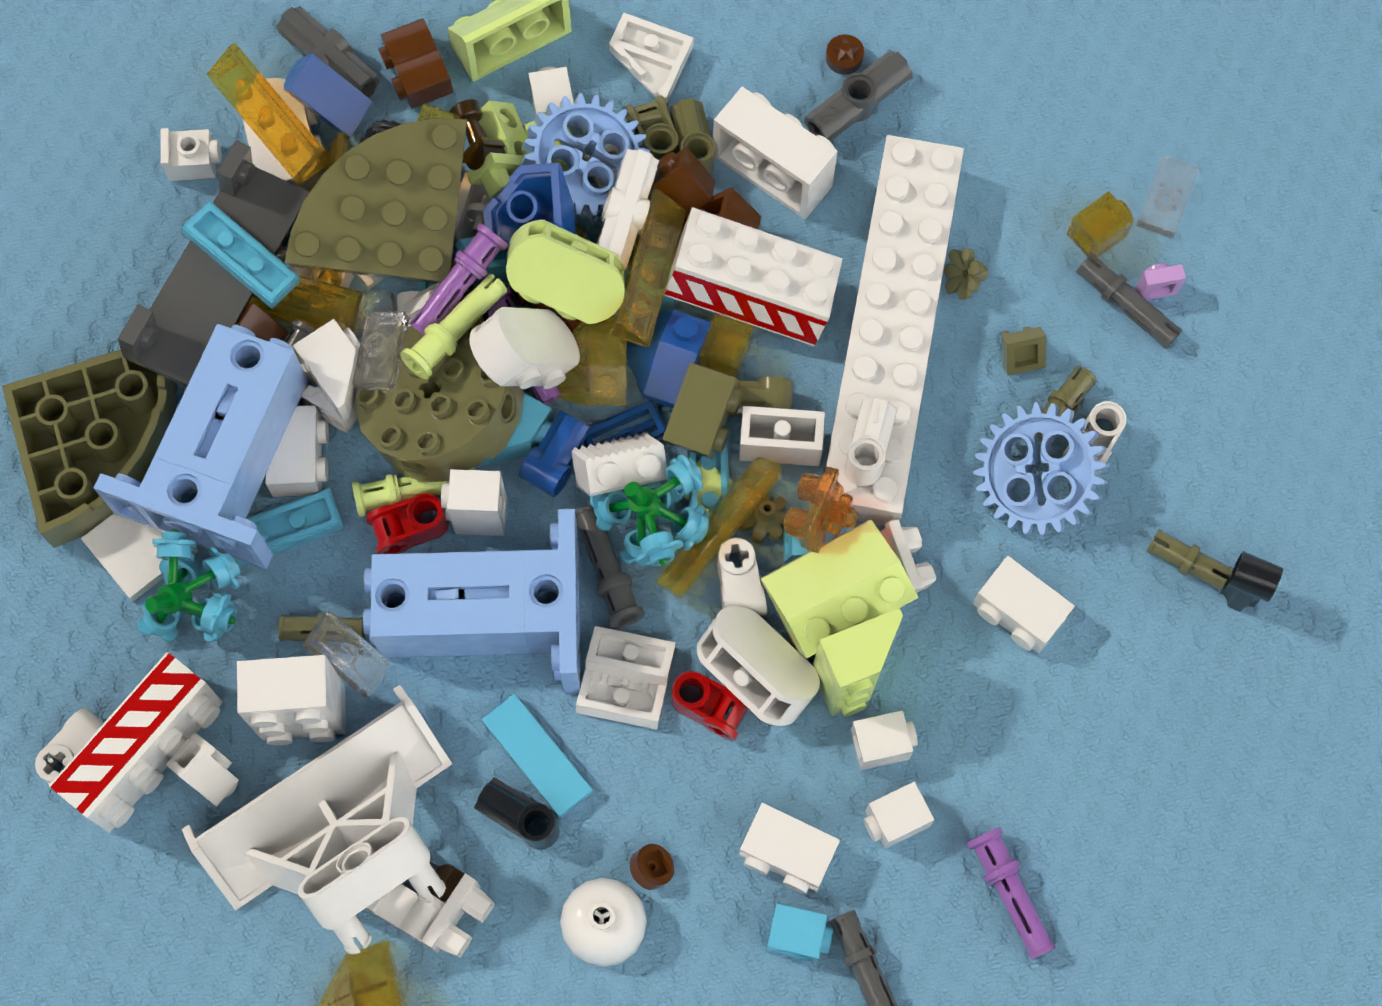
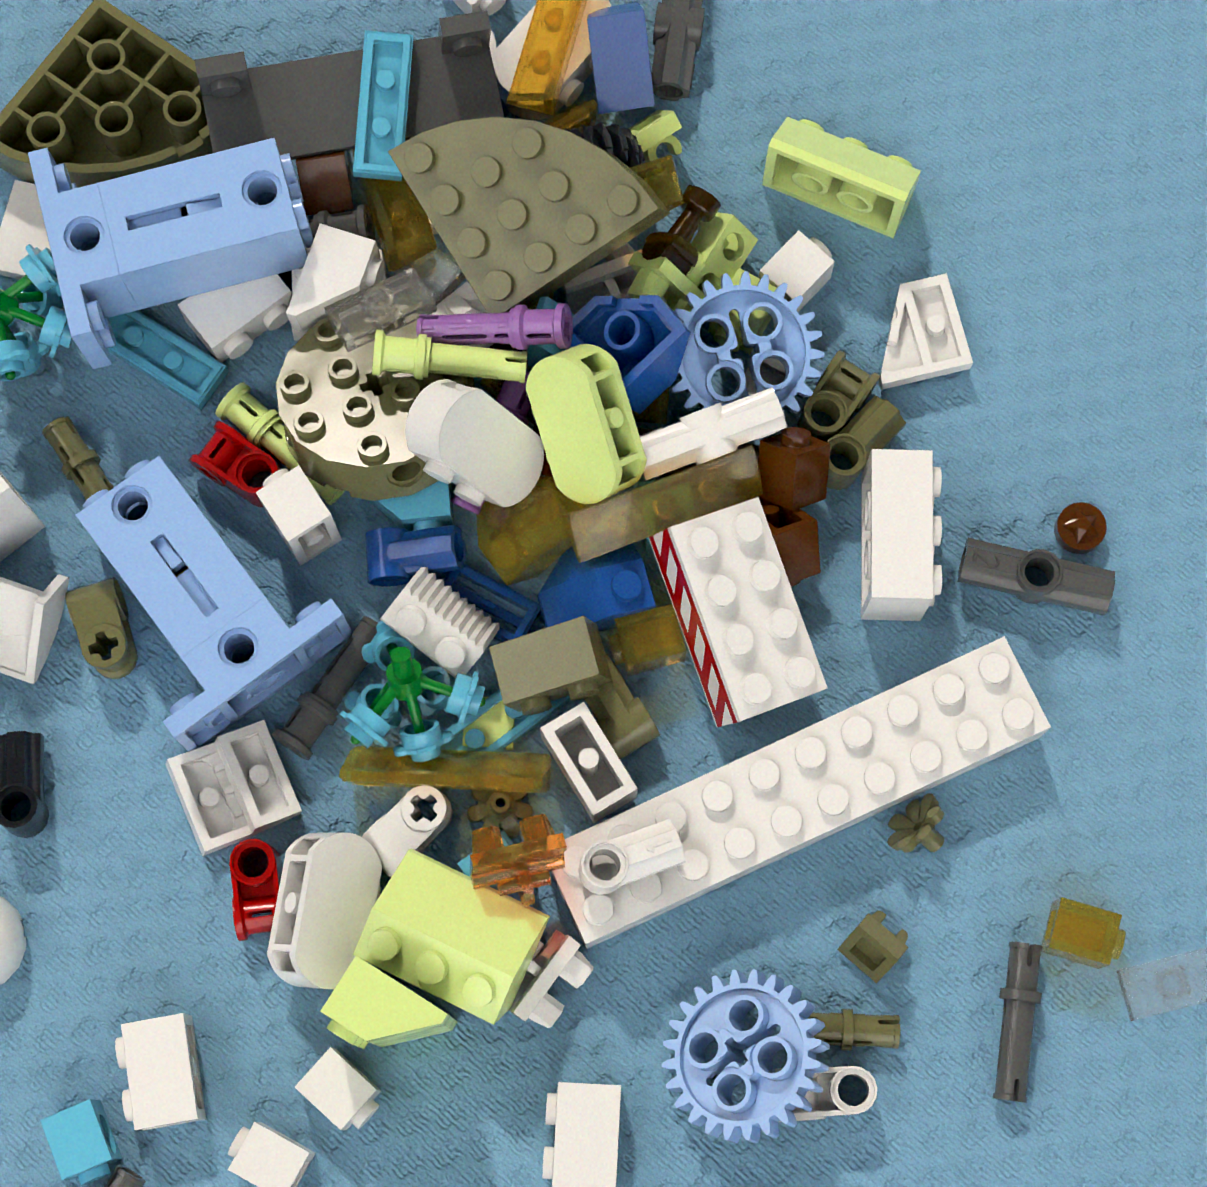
camera: 55 degrees right, 5 degrees up
(348, 653) = (61, 492): clear plate -> none
(390, 109) = (657, 129): none -> yellowish green tile
(416, 63) = (732, 115): reddish brown brick -> none
(444, 684) = (102, 620): none -> olive piece
(537, 756) = (95, 759): medium azure tile -> none
(651, 866) = (56, 949): reddish brown tile -> none
(1161, 281) = (1065, 1040): lavender plate -> none

